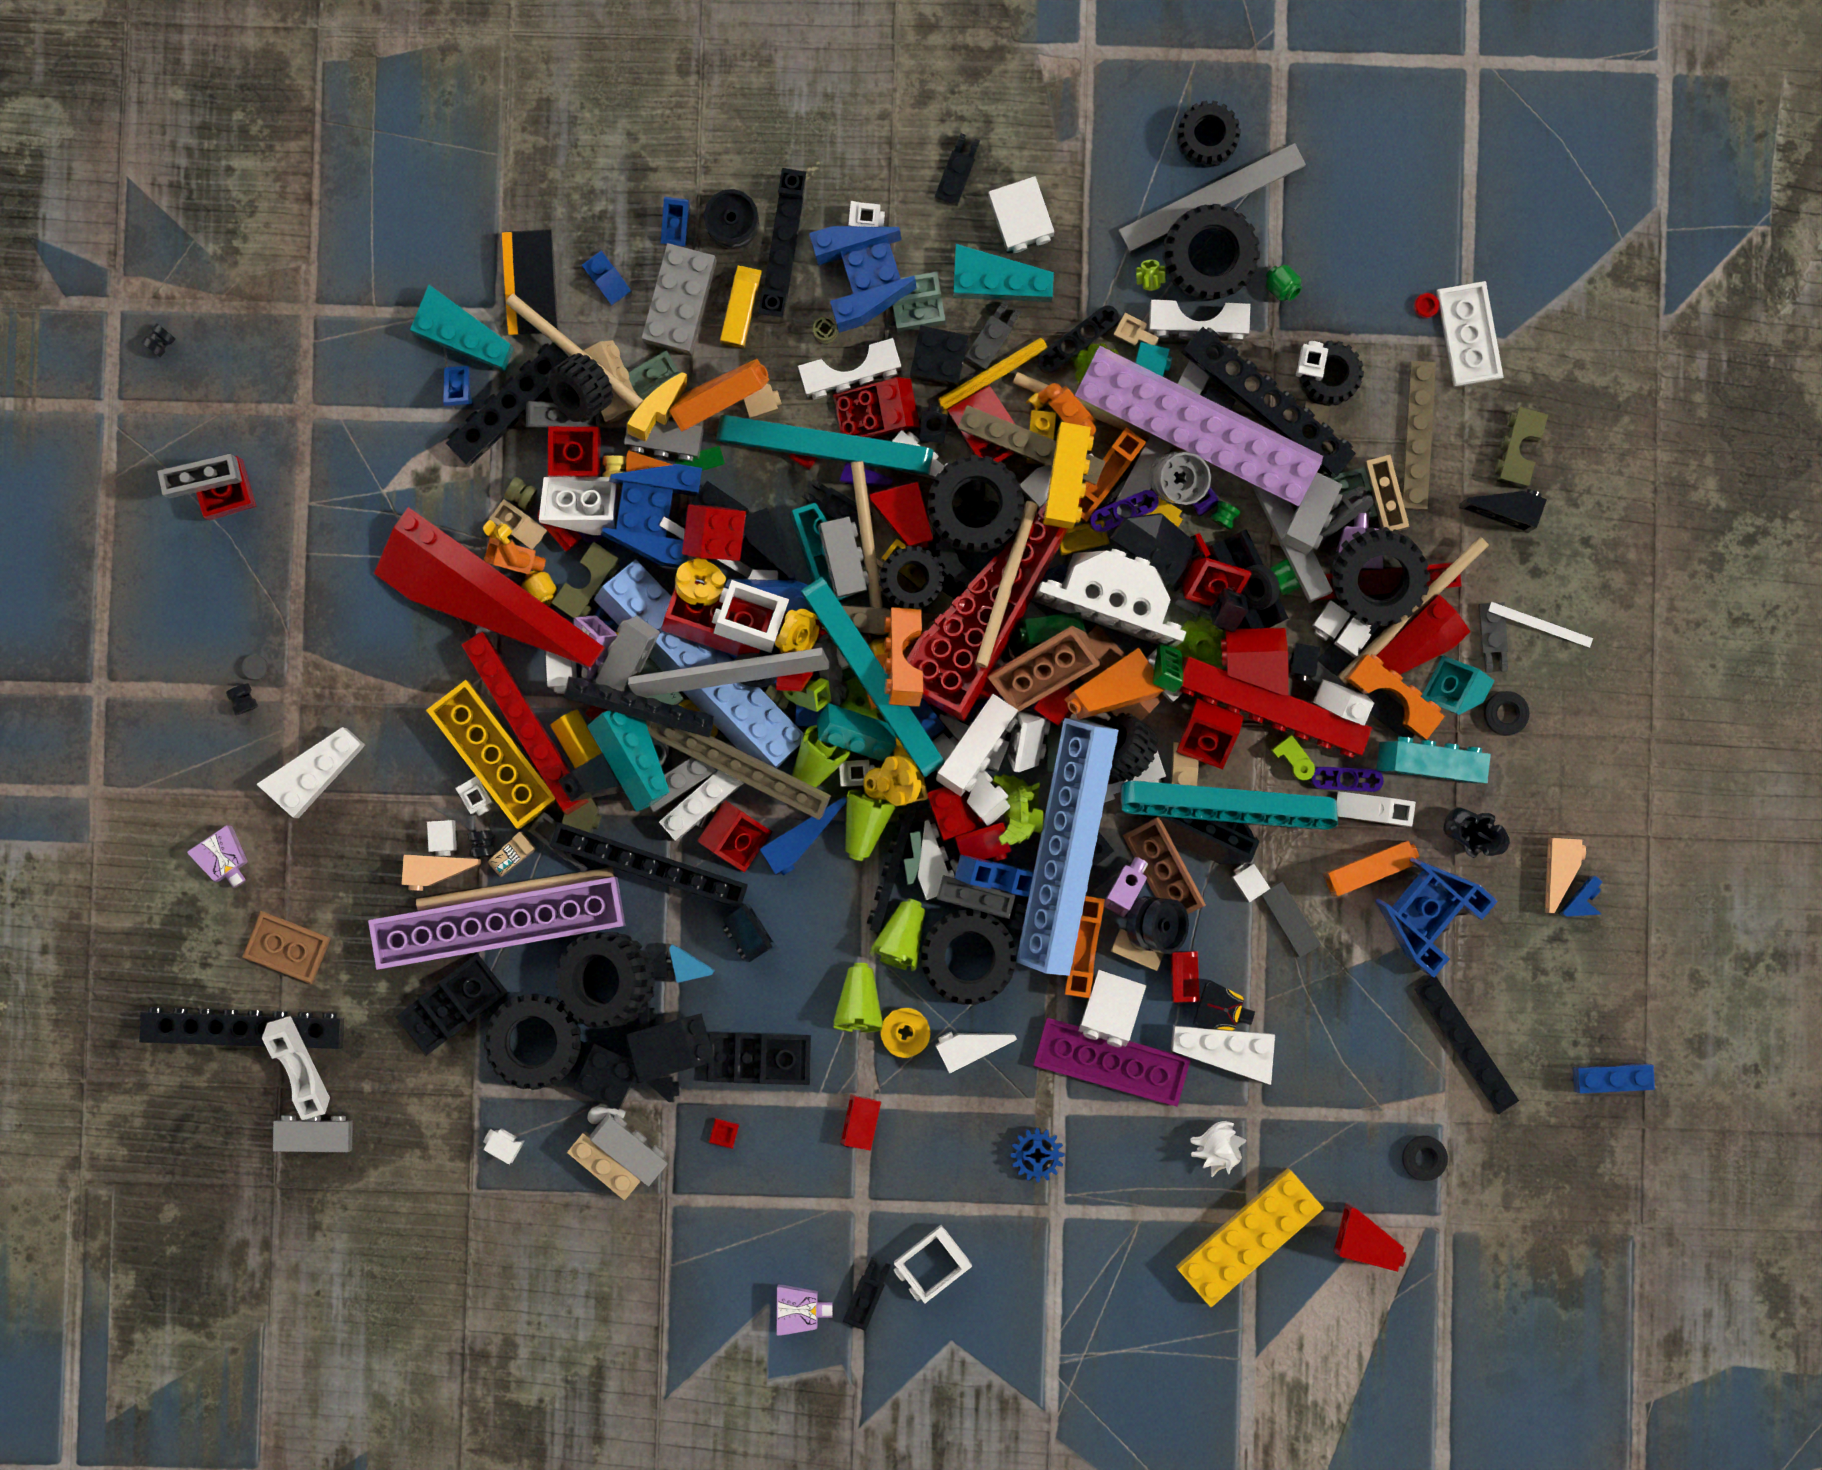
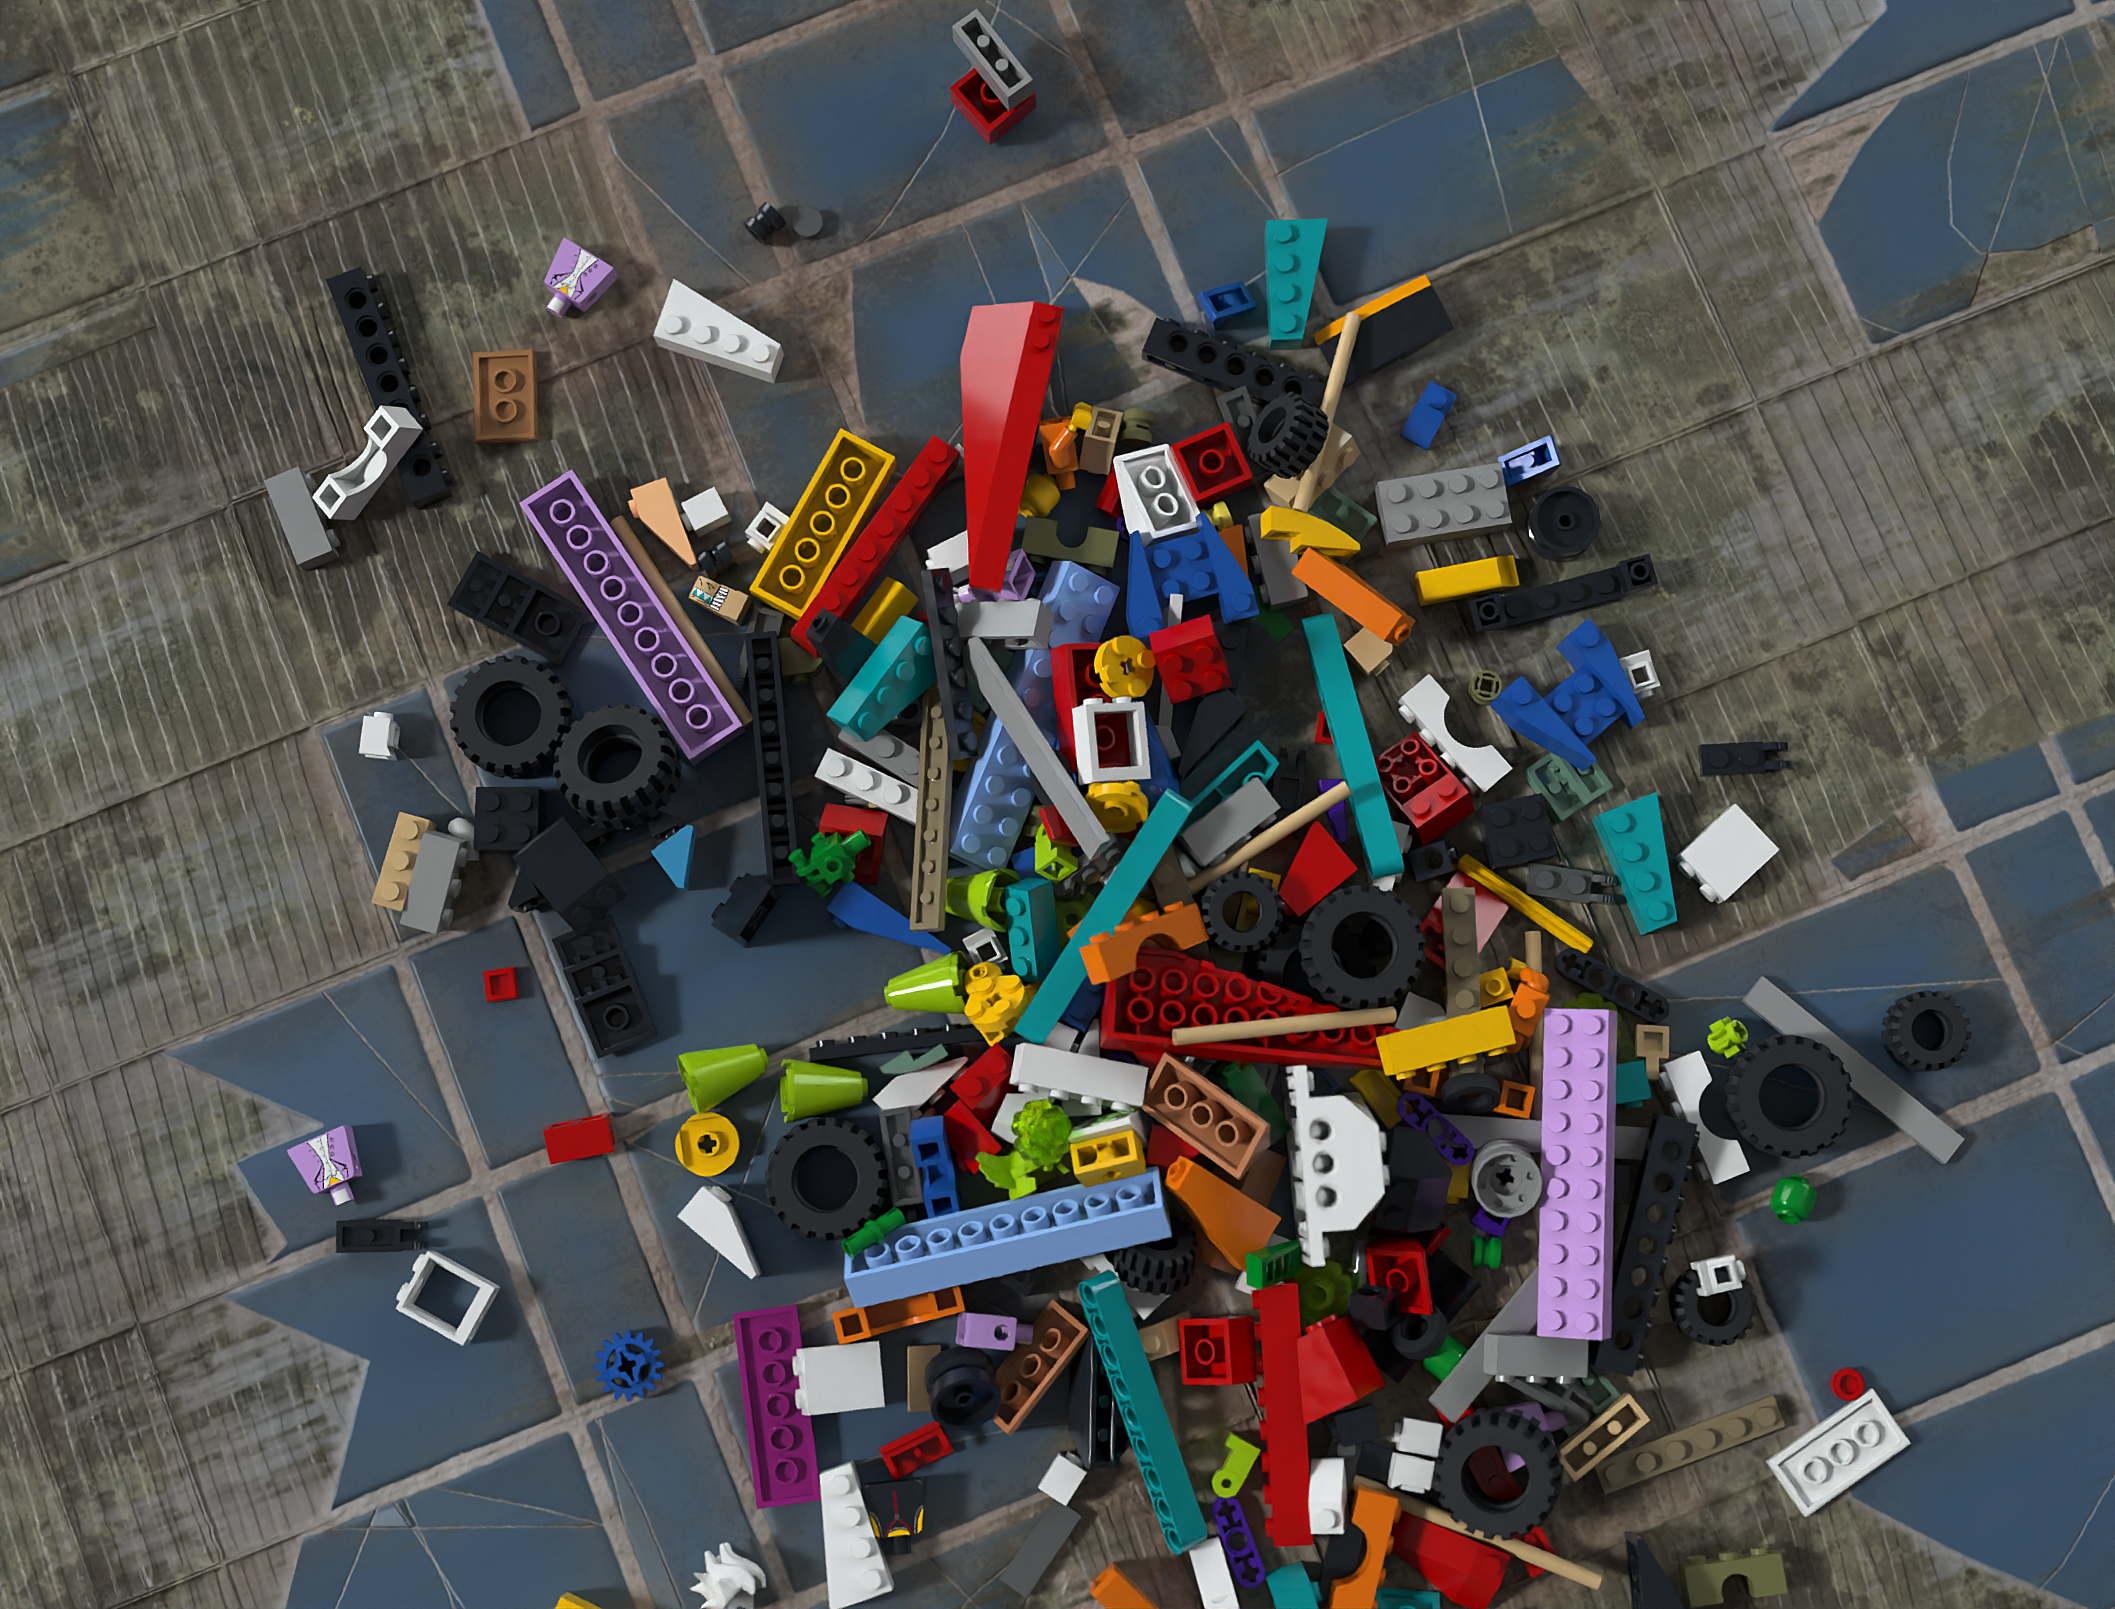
camera: 65 degrees right, 5 degrees down
(742, 855) = (832, 858): none -> green piece
(1005, 788) = (1041, 1132): none -> clear neon green plant
(1021, 939) = (873, 1232): none -> green pin
(1044, 750) = (1108, 1158): none -> yellow brick
(1102, 482) = (1466, 1083): none -> black tyre

